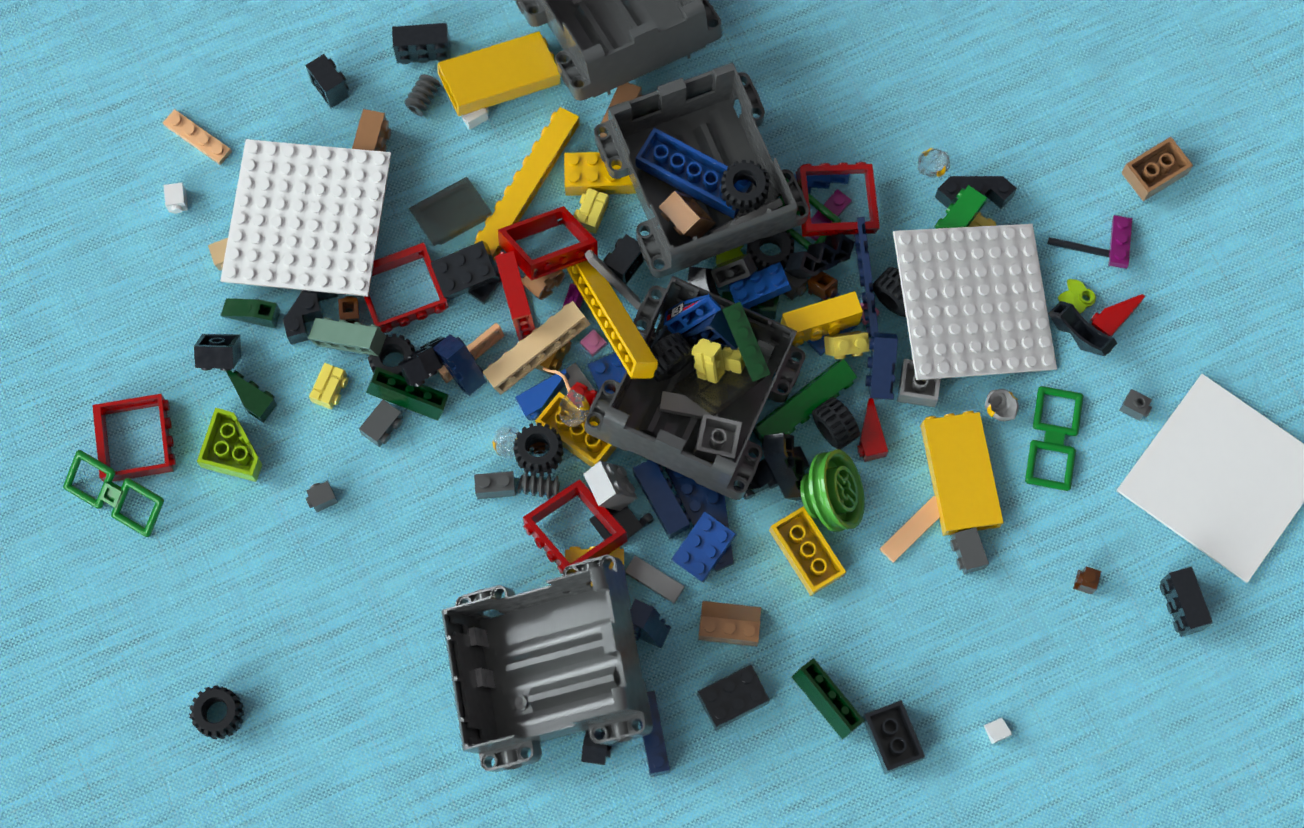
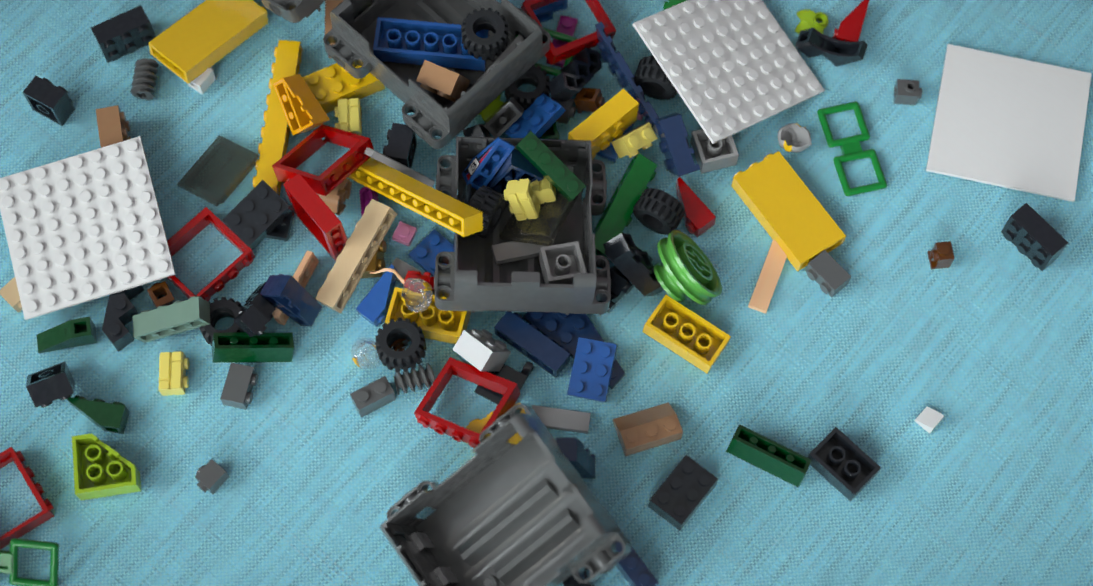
camera: 25 degrees left, 5 degrees down
(549, 179) = (299, 104): none -> light orange wedge

